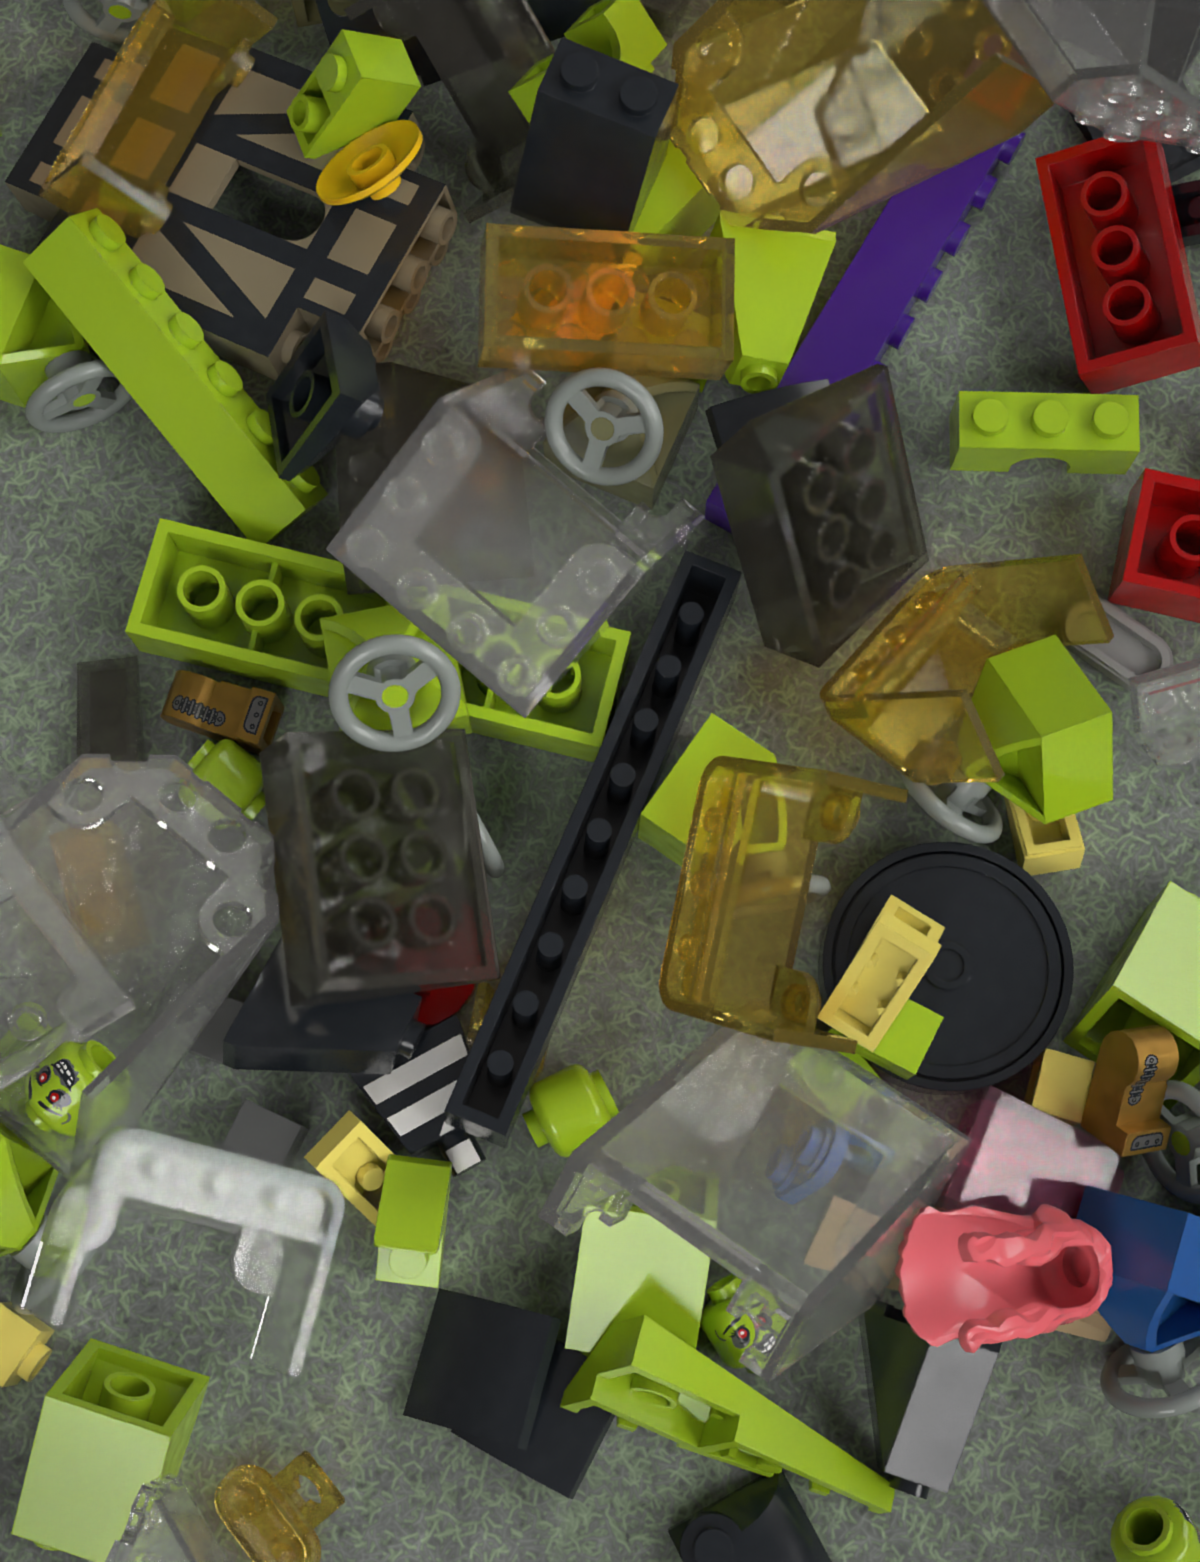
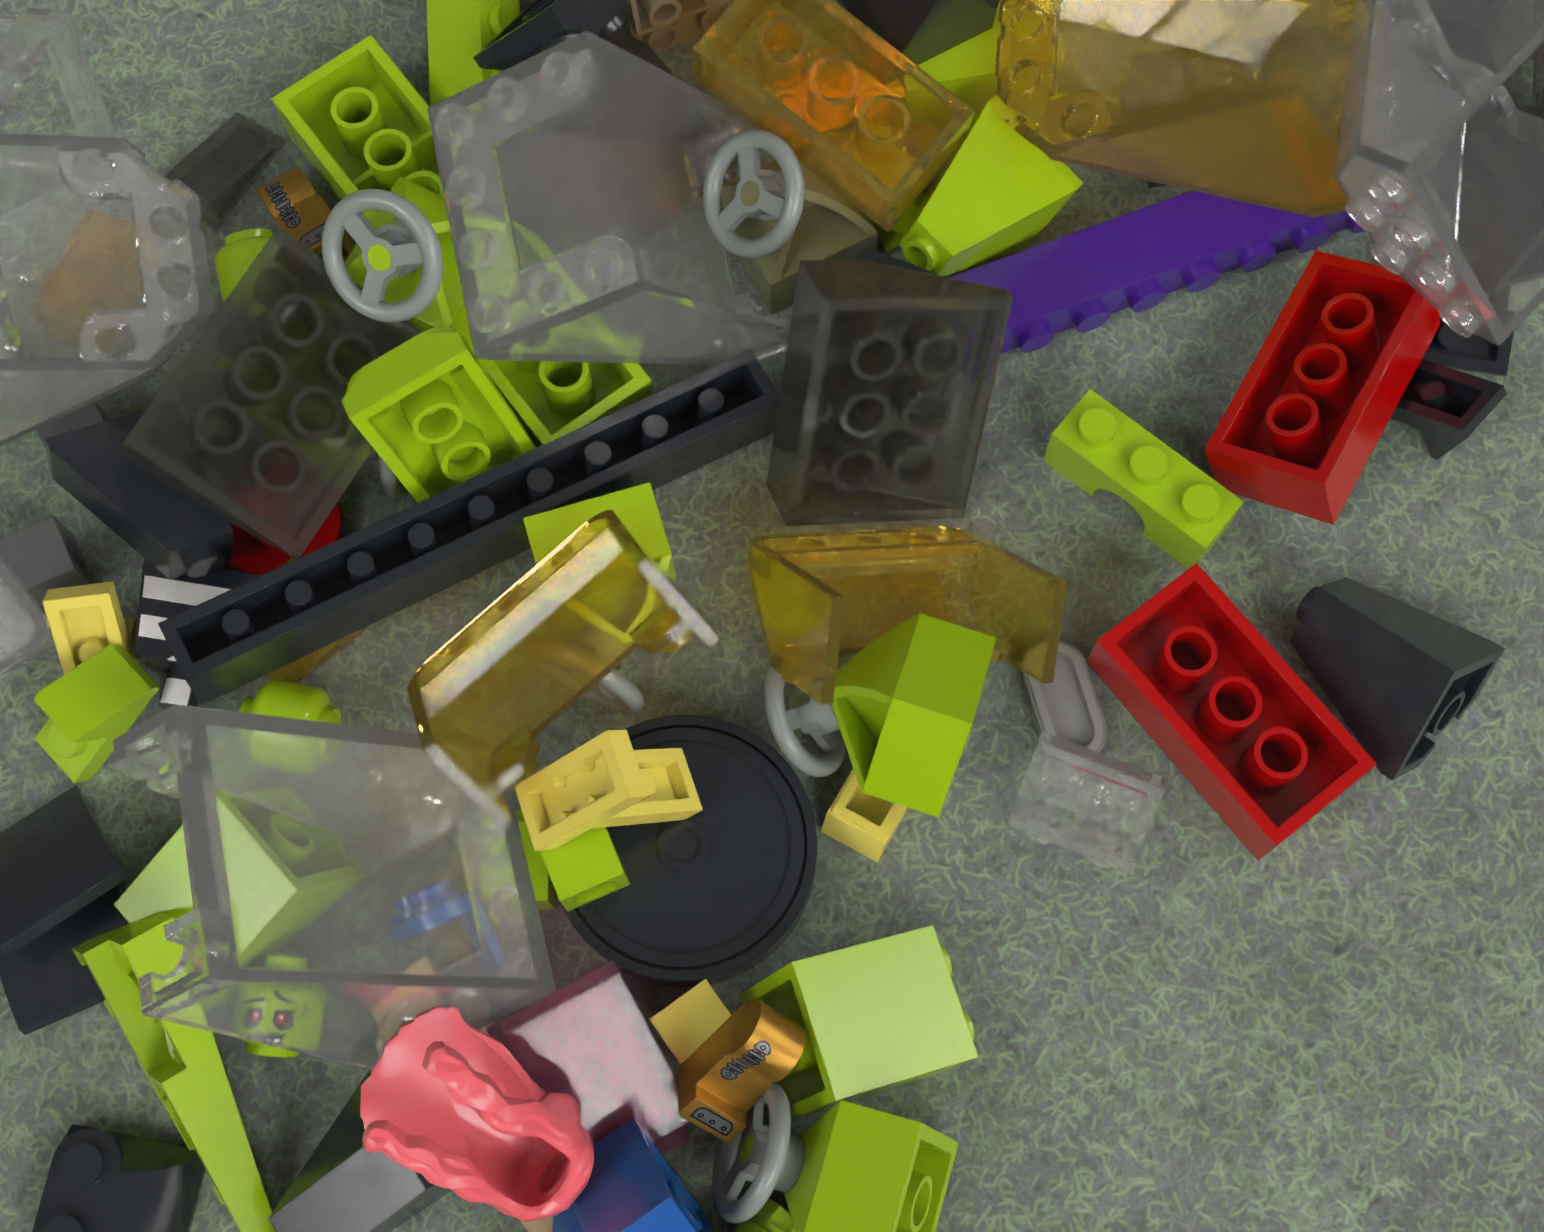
camera: 40 degrees right, 5 degrees down
(513, 785) = (434, 413): none -> lime slope

